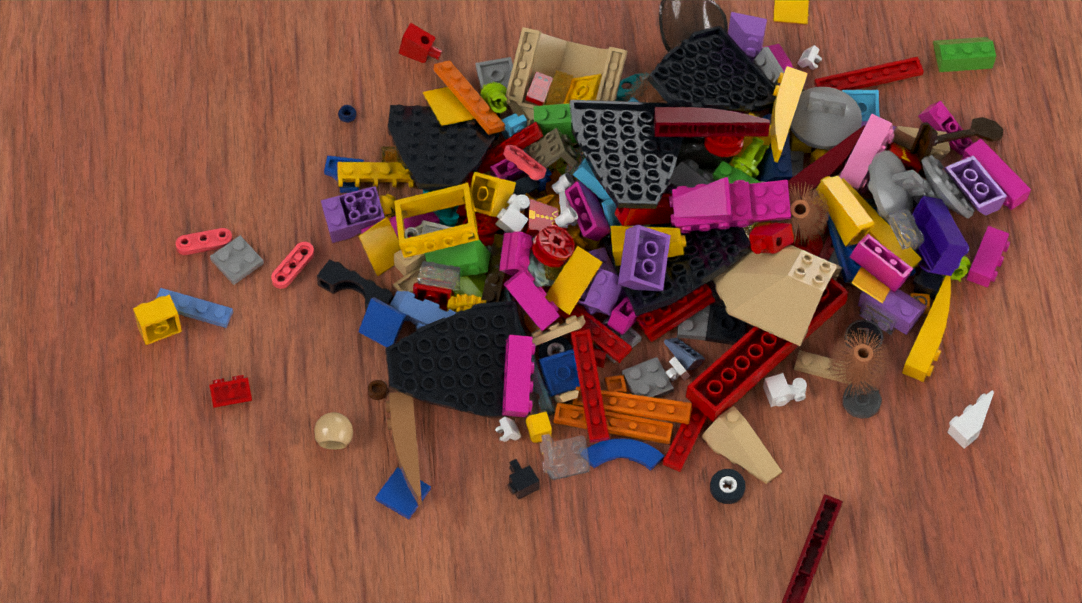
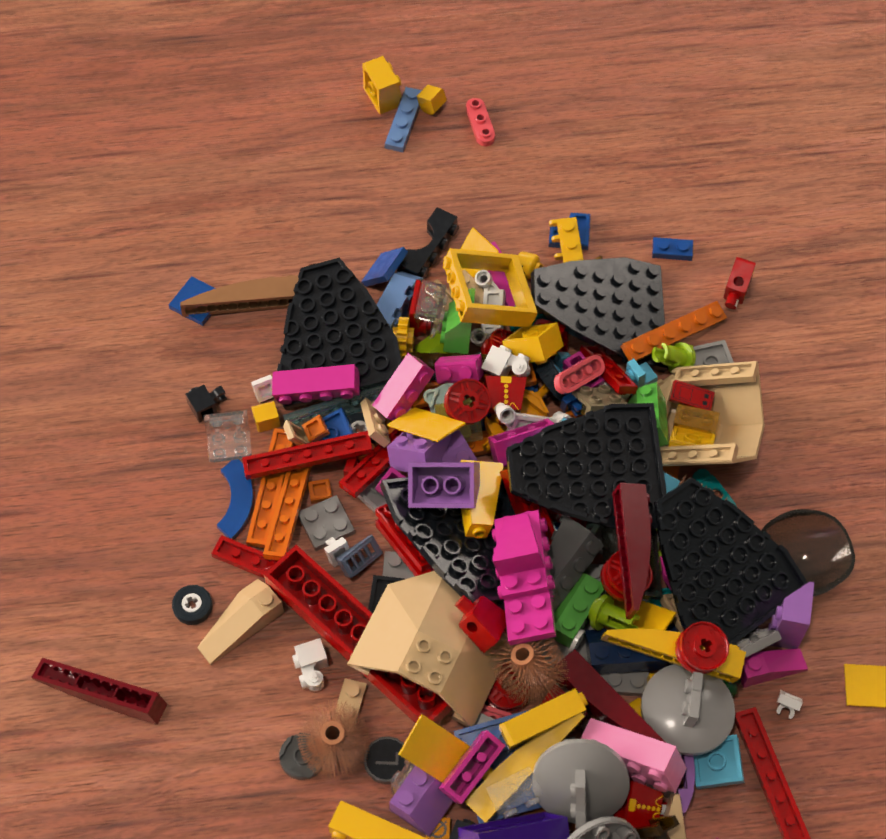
camera: 90 degrees right, 0 degrees up
(175, 279) = (431, 99): none -> yellow piece
(230, 392) = (309, 151): red bracket -> none
(236, 260) = (460, 149): light grey plate -> none
(296, 259) = (450, 187): coral plate -> none
(333, 431) = (261, 233): tan helmet -> none
(347, 109) = (645, 224): dark blue plate -> none
(351, 213) = (514, 230): medium lavender slope -> none
(370, 95) = (672, 249): none -> blue plate
(447, 106) = (659, 311): yellow window -> none
(557, 383) = (315, 429): none -> orange tile
(791, 89) = (714, 643): none -> red wheel

